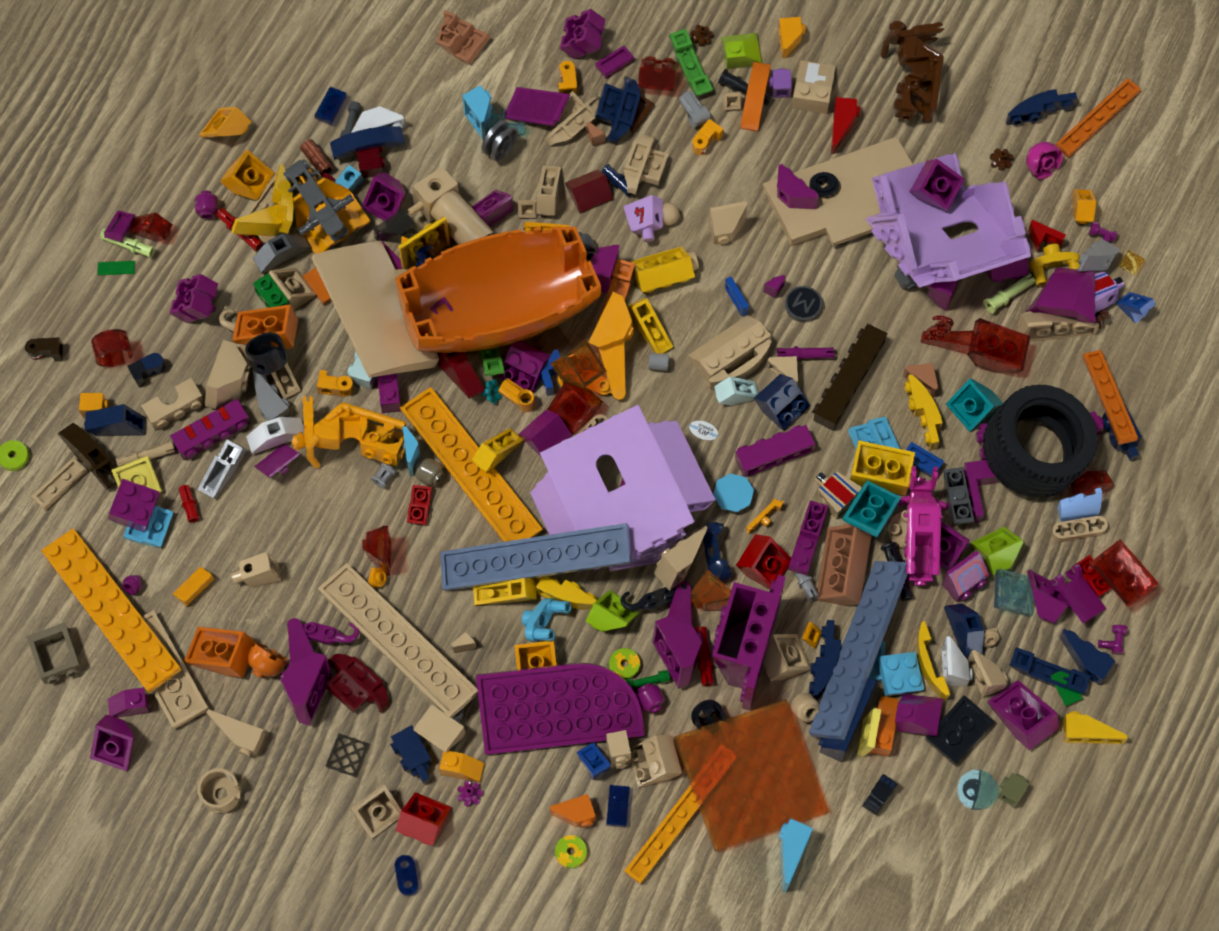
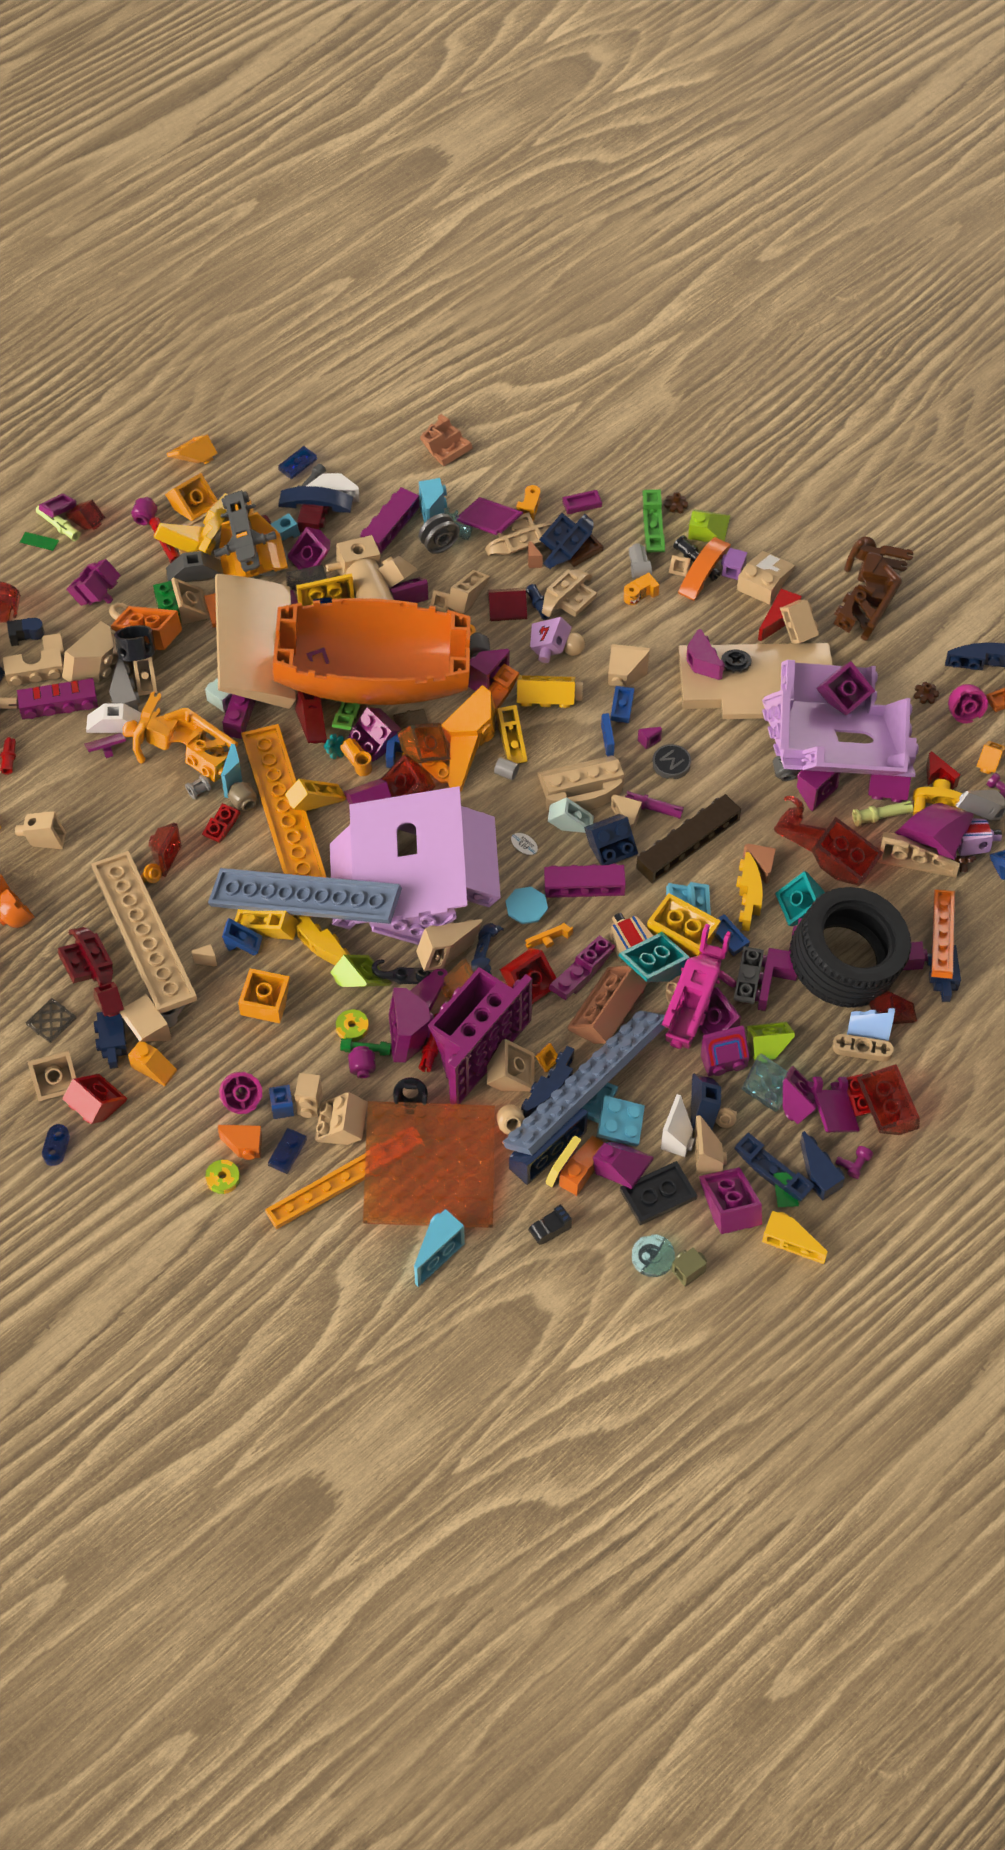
camera: 20 degrees right, 10 degrees down
(180, 373) = (53, 641): none -> tan slope
(222, 468) = (52, 735): light grey slope -> none
(309, 671) = (46, 930): magenta slope -> none
(316, 157) = (264, 500): copper axle -> none
(334, 385) = (189, 696): light orange leg -> none
(399, 722) = (108, 999): none -> dark red slope
(445, 138) = (392, 518): none -> magenta brick
(469, 797) = (150, 1092): magenta plant -> none
(477, 194) = (396, 570): none -> tan slope
(490, 614) = (242, 937): none -> blue slope
(537, 619) = (283, 957): medium azure connector -> none
(555, 707) = (264, 1036): magenta plate -> none
(556, 768) = (247, 1097): none -> dark pink cylinder
(582, 34) = (559, 466): magenta brick -> none
(657, 73) = (617, 522): clear red slope -> none
(737, 261) = (622, 704): none -> blue plate
(790, 34) = (762, 524): light orange slope -> none
(806, 584) = (562, 1009): light grey pin -> none
(865, 125) = (799, 621): none -> tan brick
(906, 593) = (659, 1048): black pin -> none
(938, 684) = (653, 1140): yellow slope -> none

